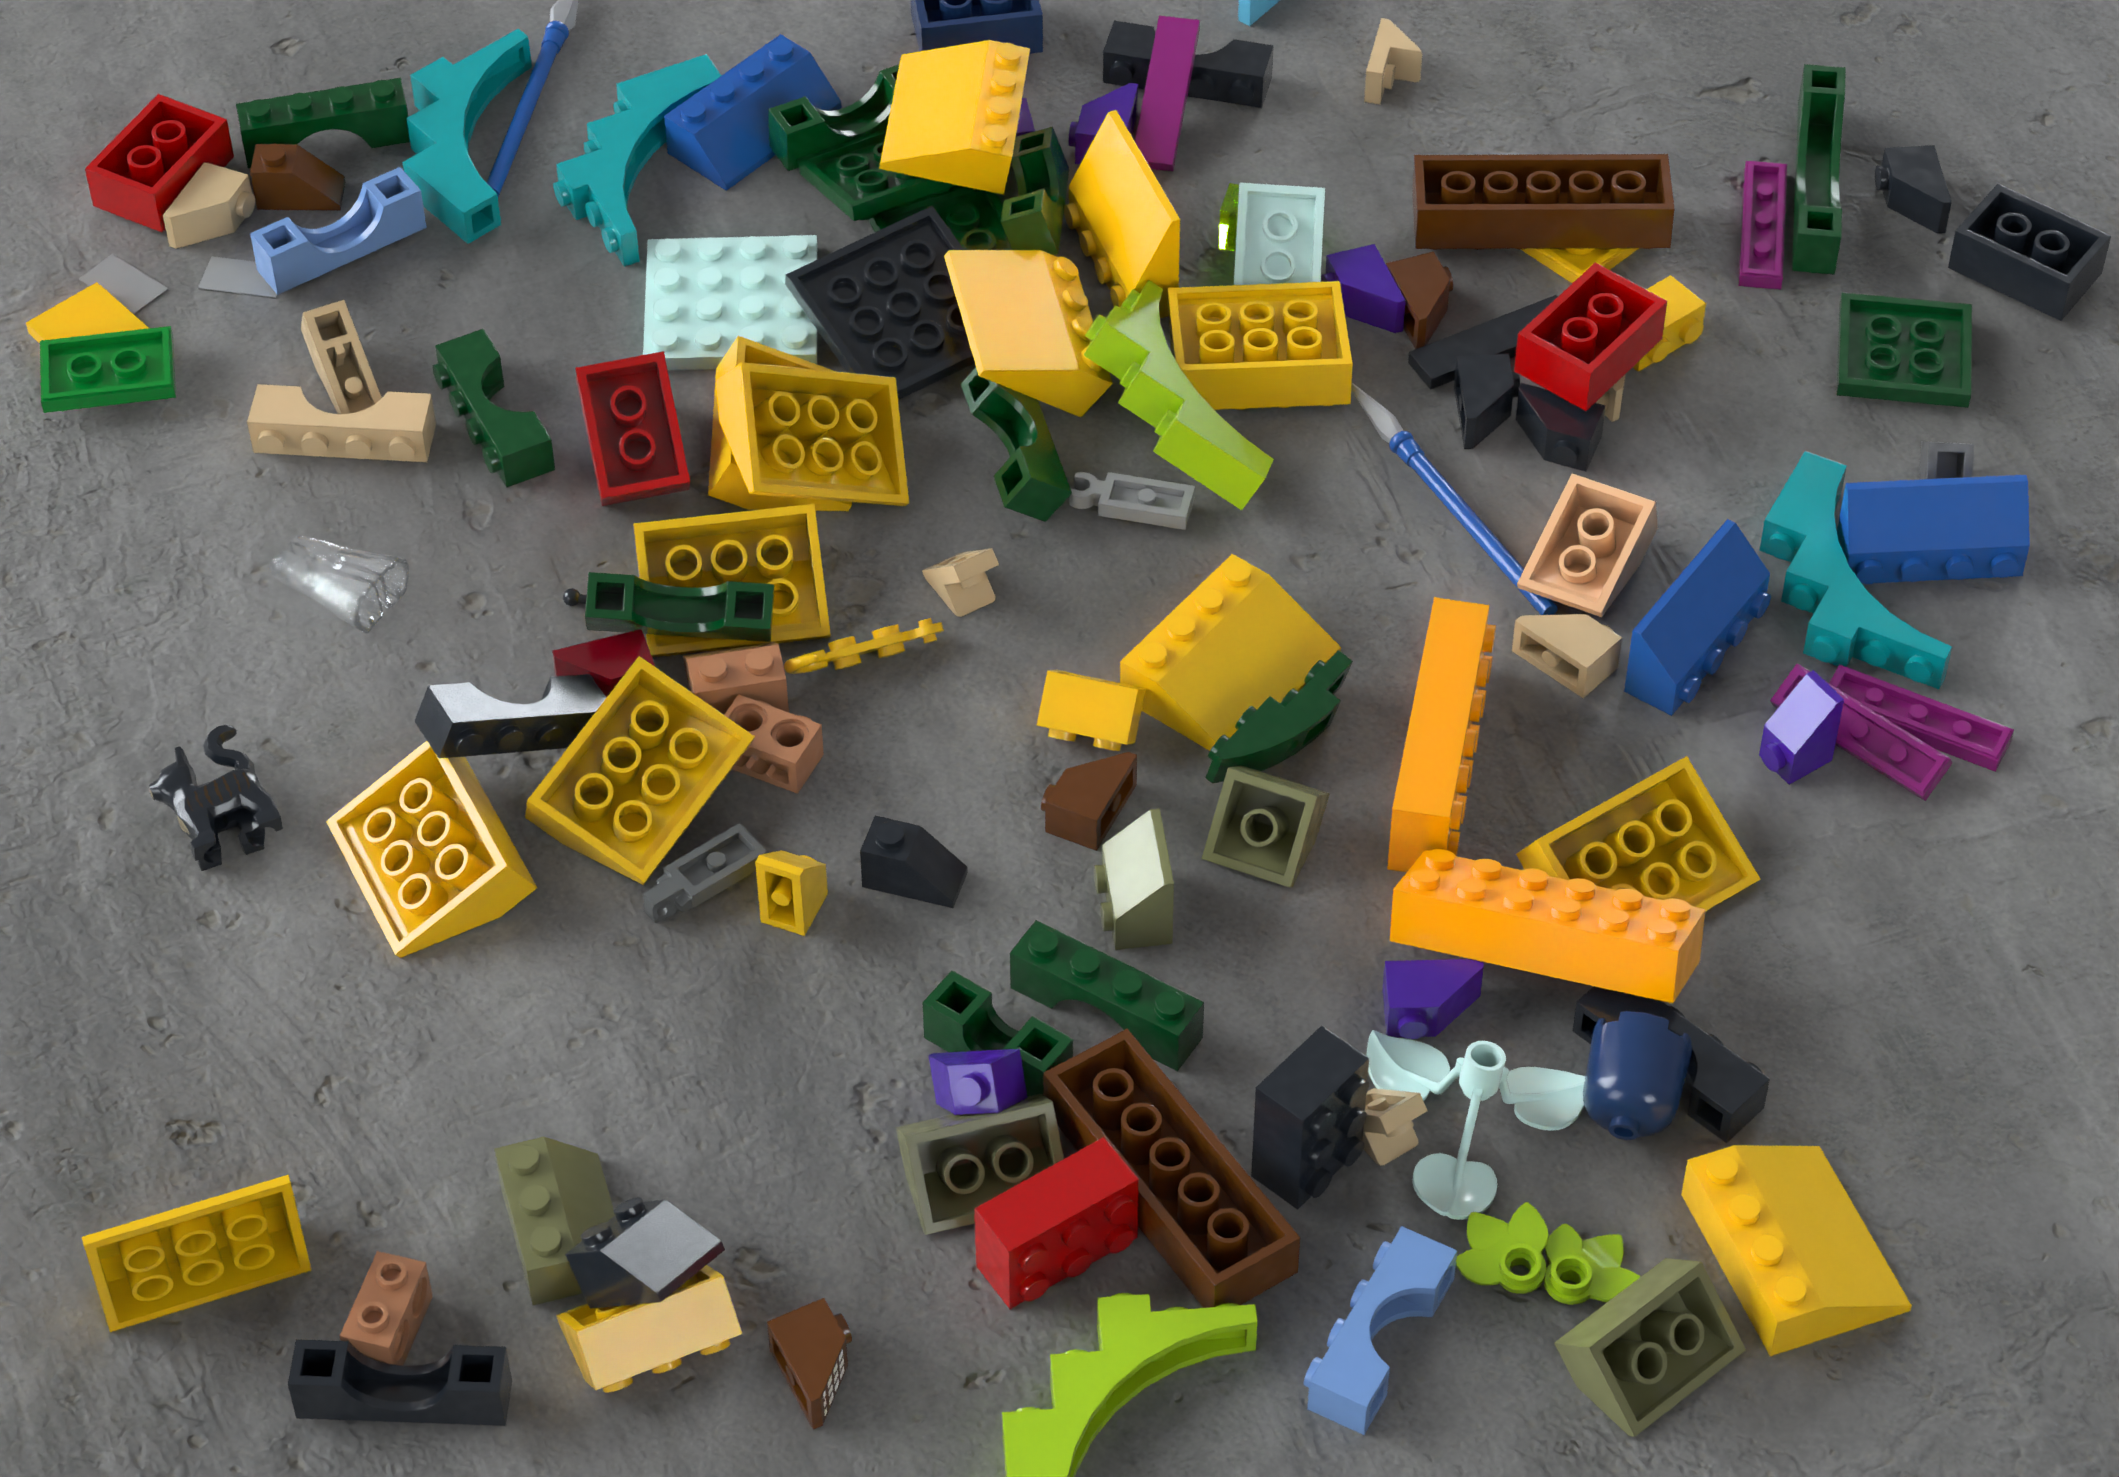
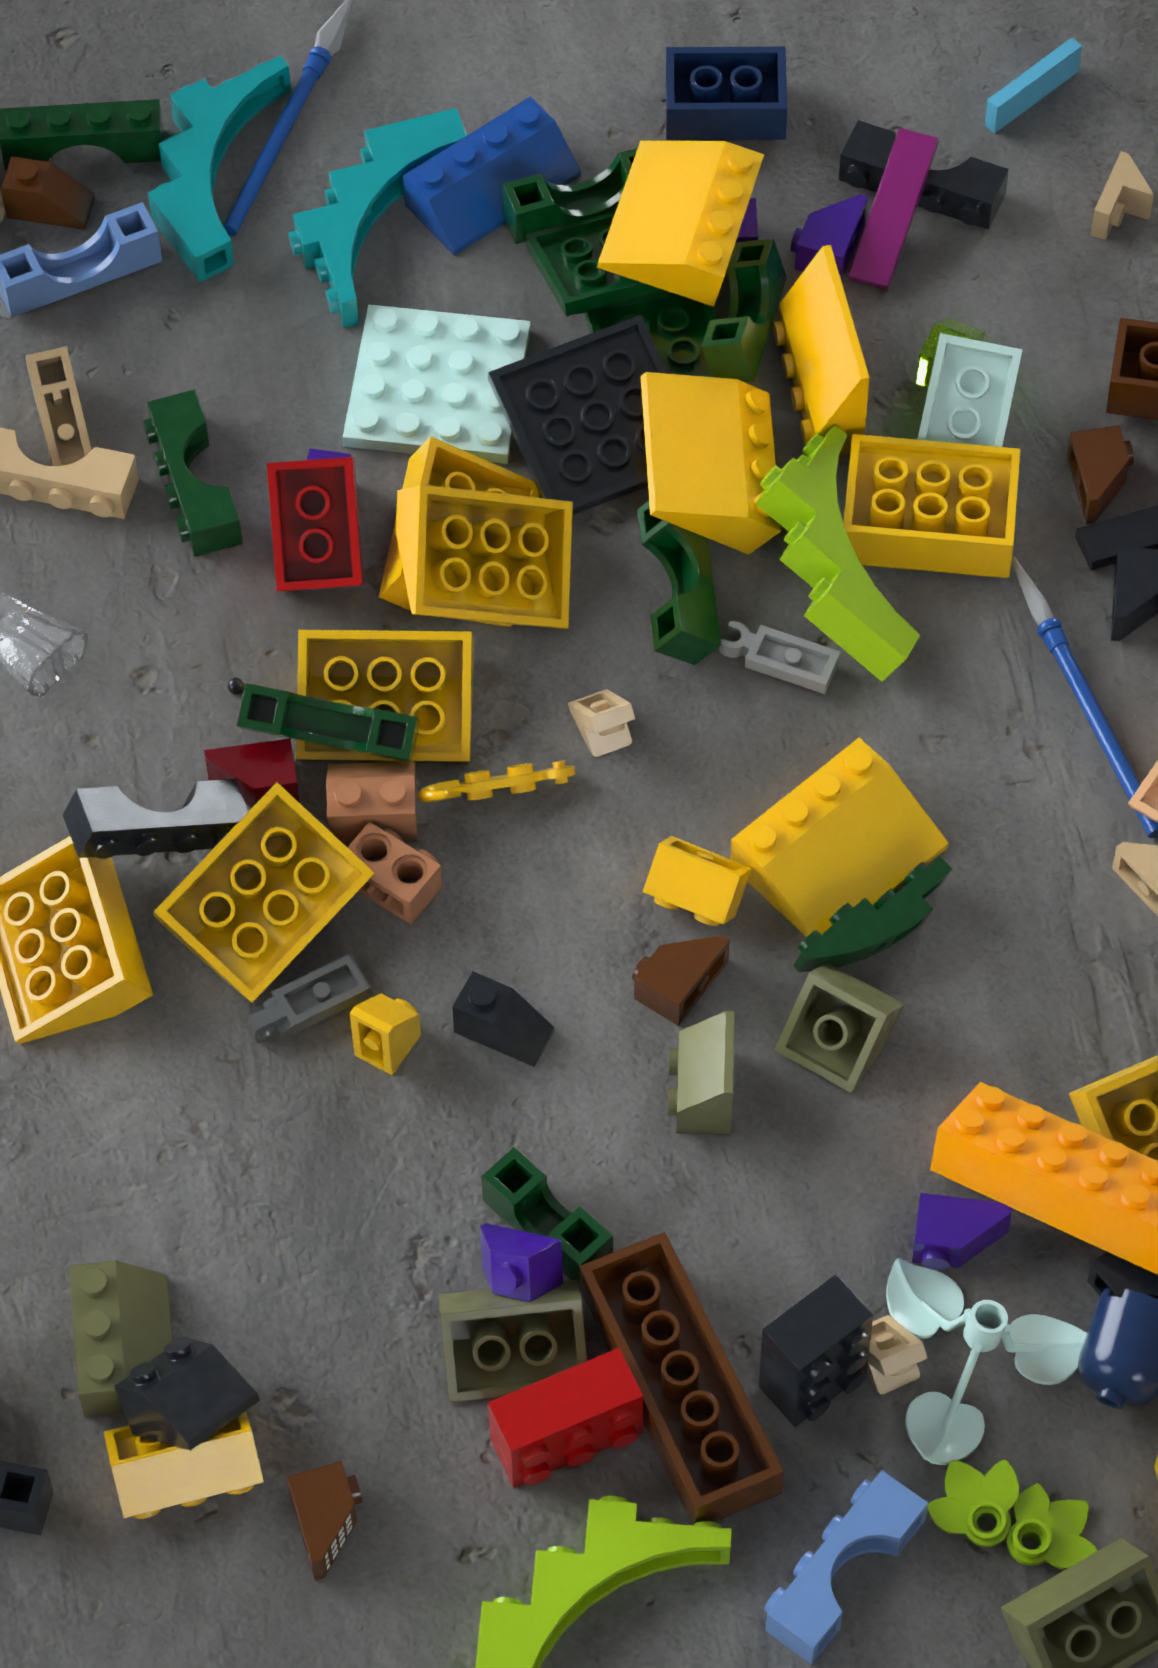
camera: 10 degrees right, 10 degrees up
(1059, 968) = (691, 1209): dark green arch -> none
(1367, 287) = (1046, 452): dark purple slope -> none
(1442, 732) = (1021, 960): light orange brick -> none

